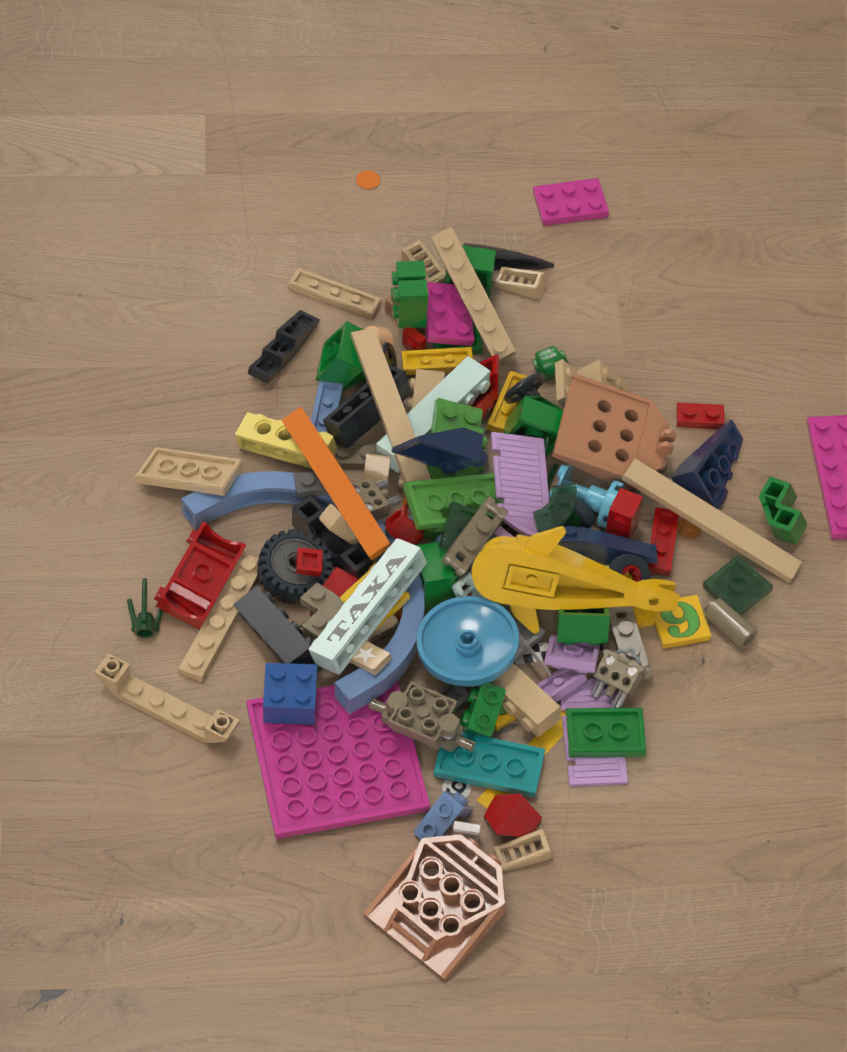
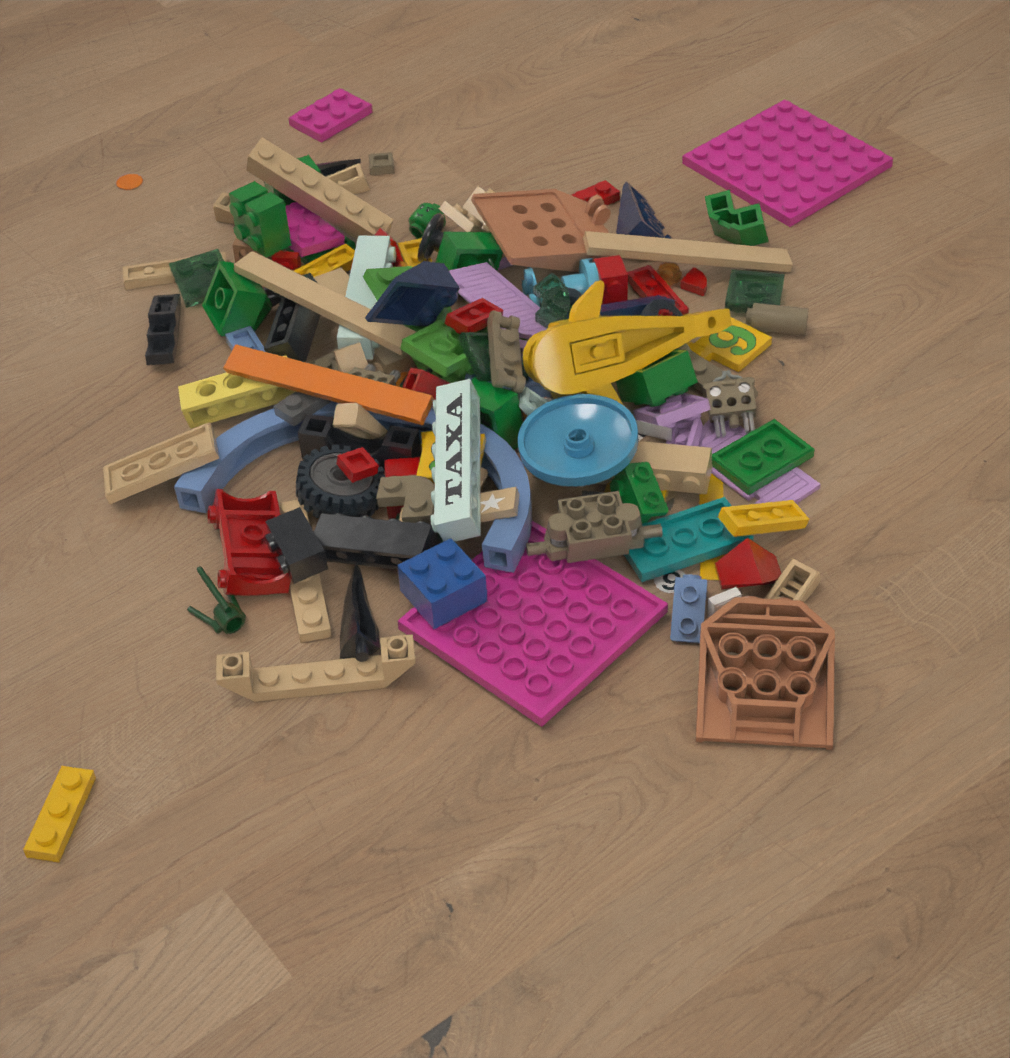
camera: 30 degrees left, 10 degrees down
(217, 602) = (296, 545): none -> black brick
(222, 684) = (358, 628): none -> black piece
(343, 307) = (195, 275): none -> clear green plate
(478, 489) = (471, 316): none -> red plate
(552, 784) = (763, 518): none -> yellow plate
(568, 278) = (381, 163): none -> dark tan tile
(704, 547) = (694, 282): none -> red tile

